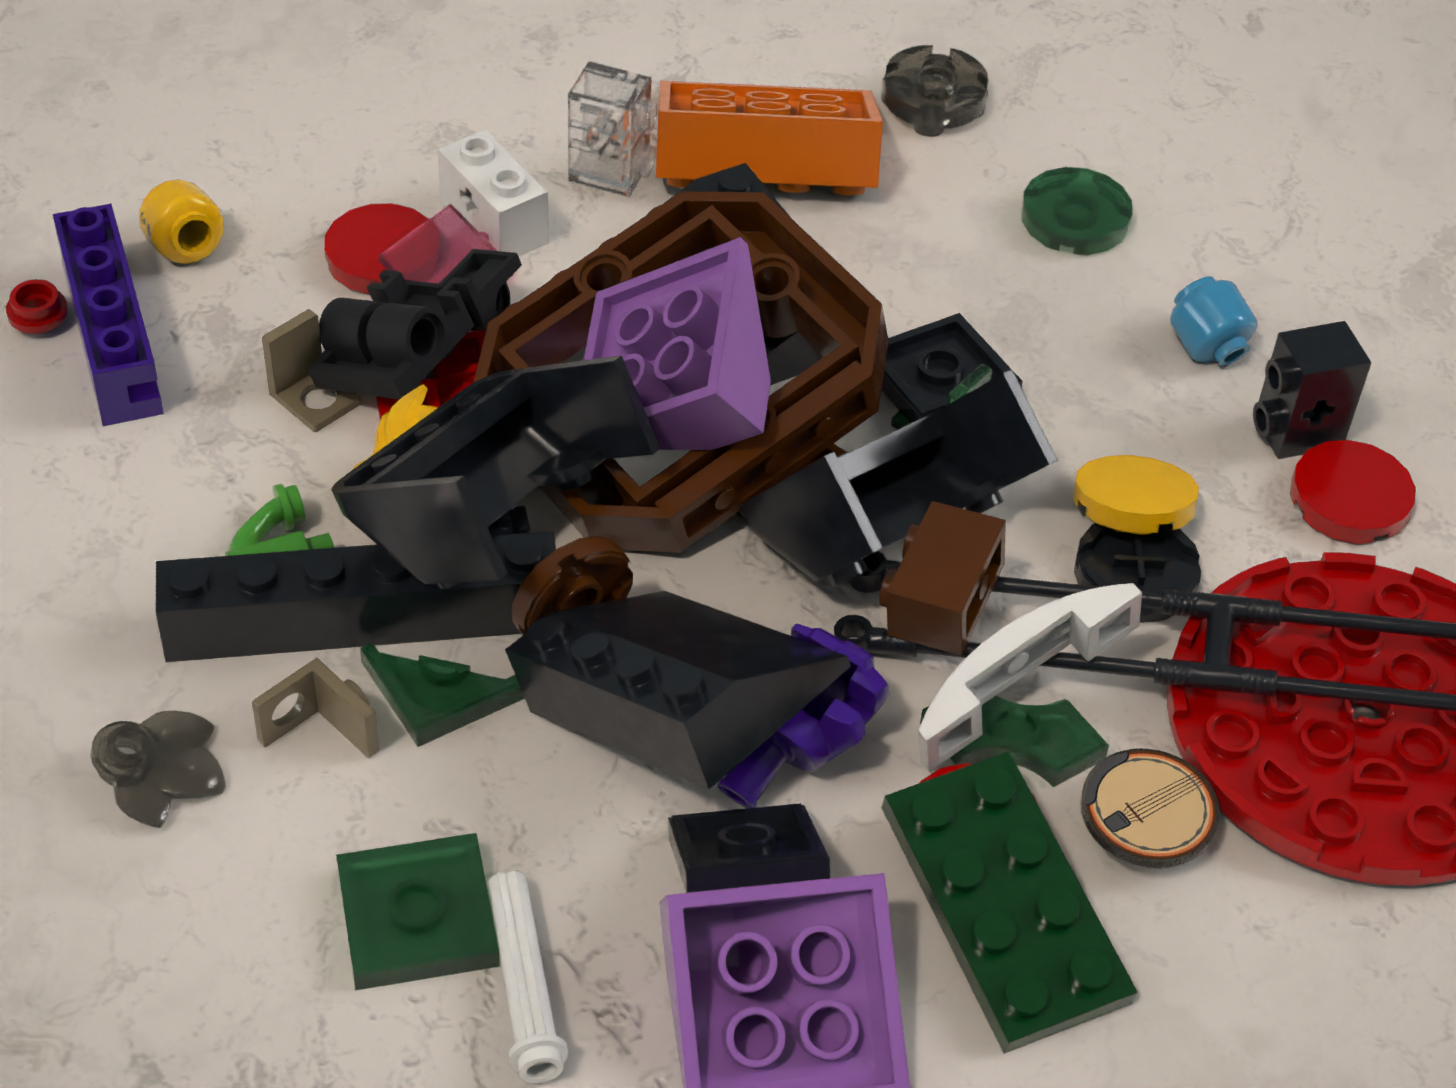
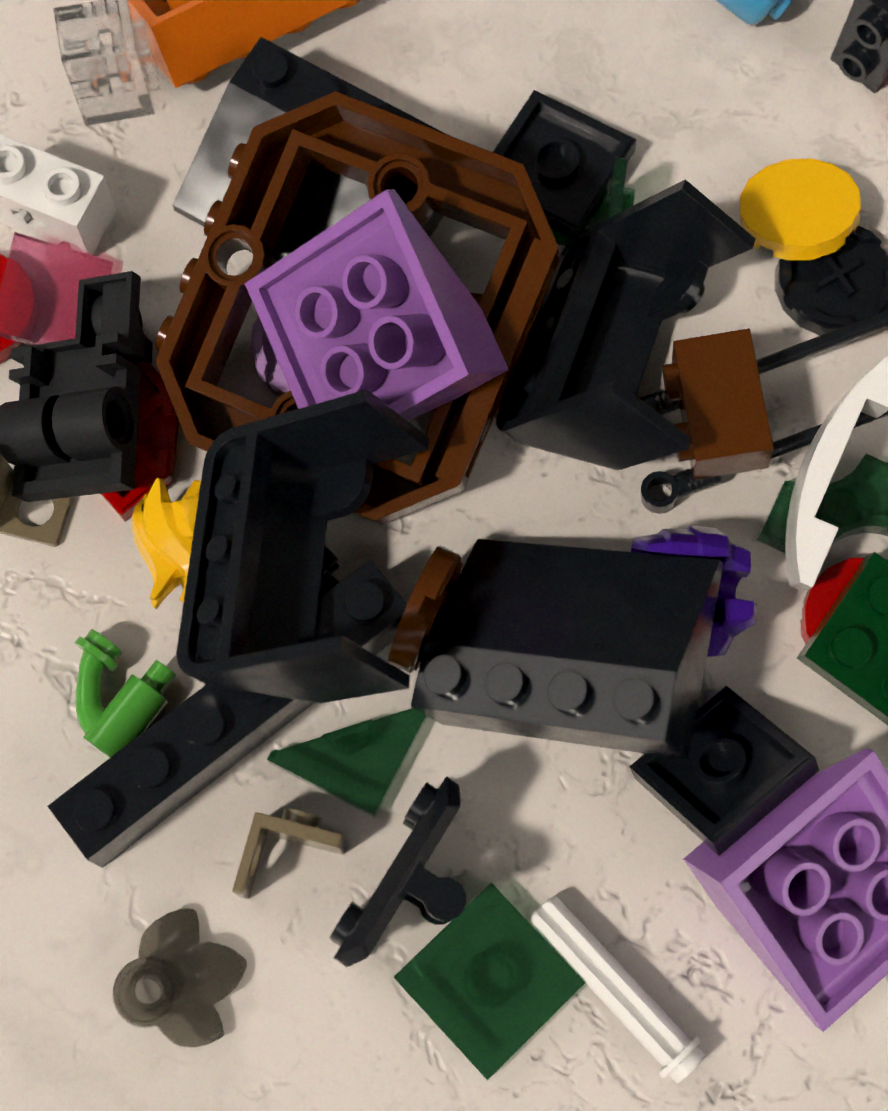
camera: 30 degrees left, 25 degrees up
(397, 768) = (407, 879): none -> black shield

